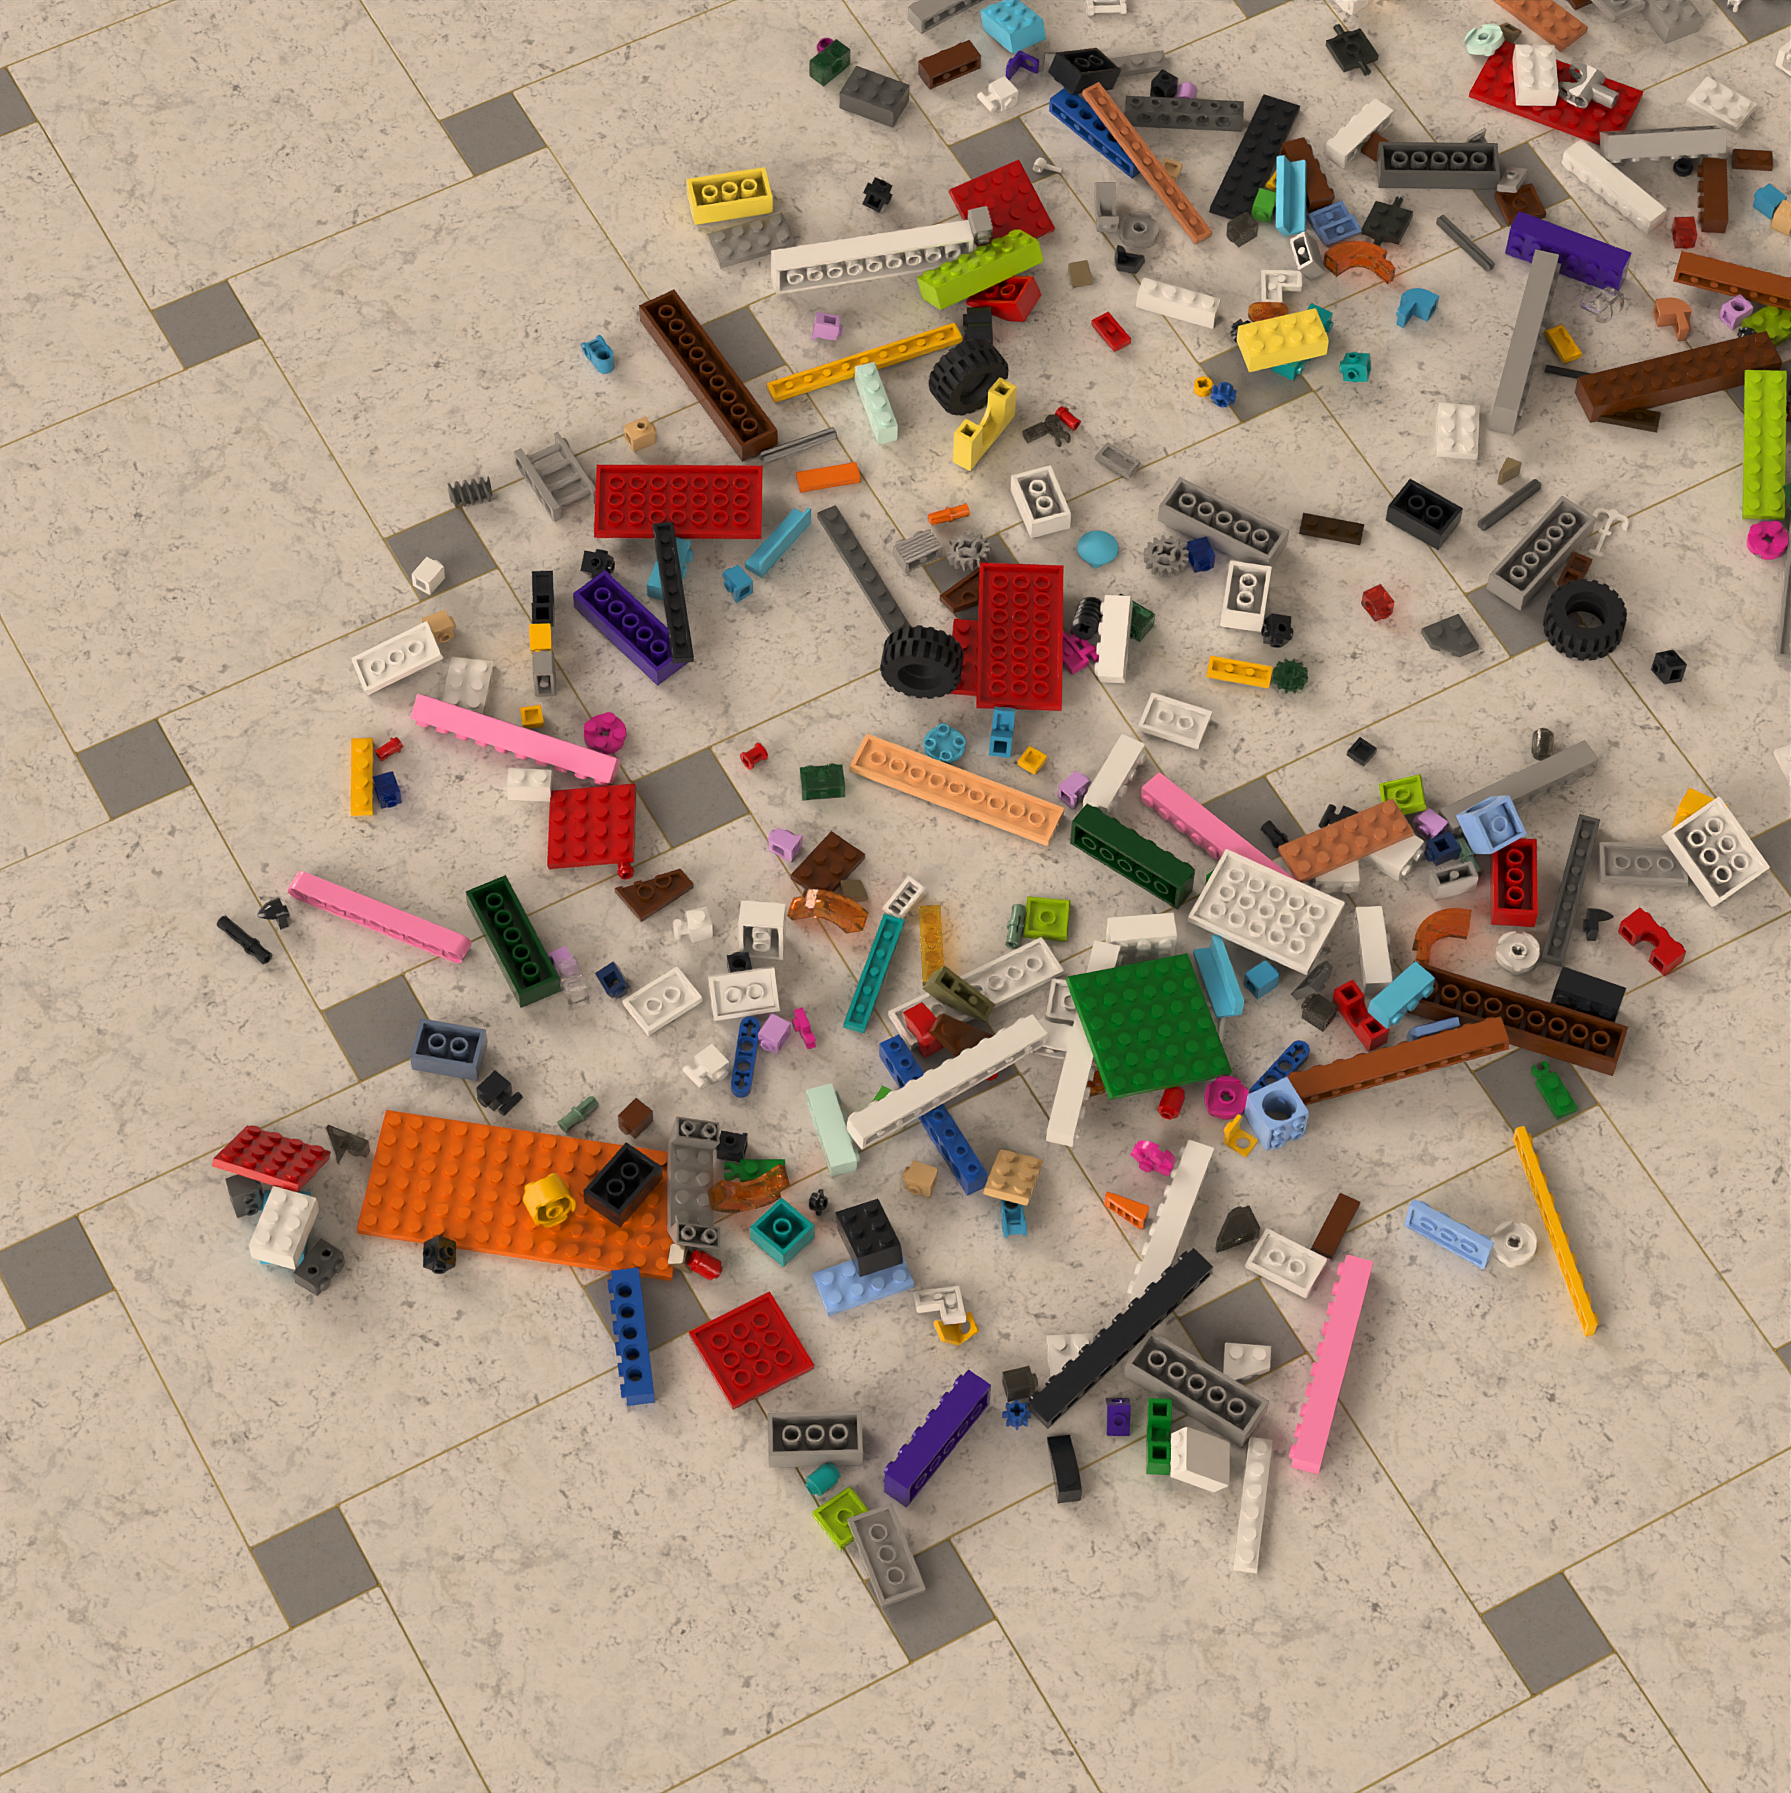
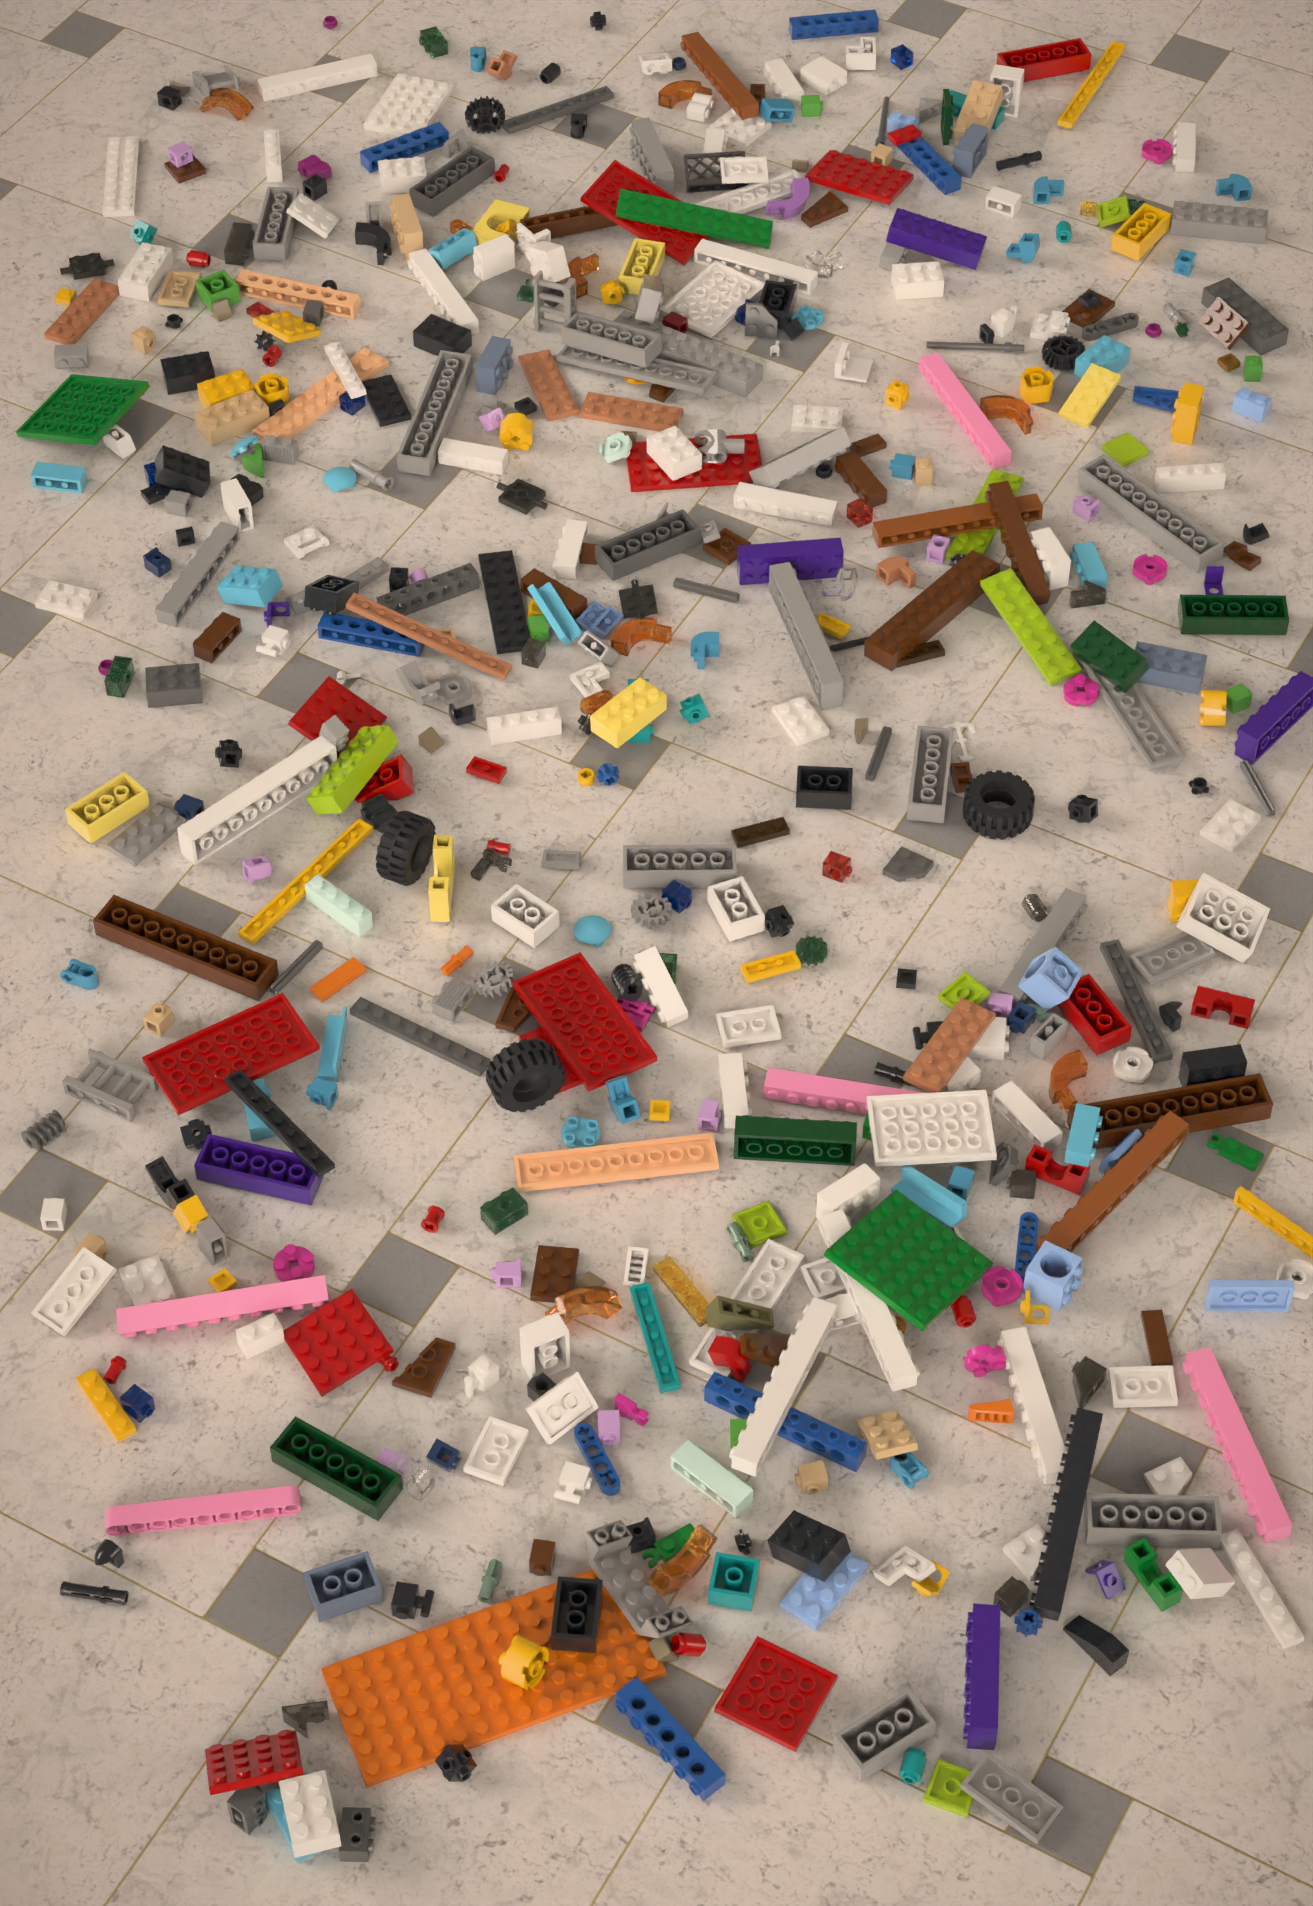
camera: 30 degrees left, 10 degrees down
(805, 232) = (189, 806): none -> dark blue brick

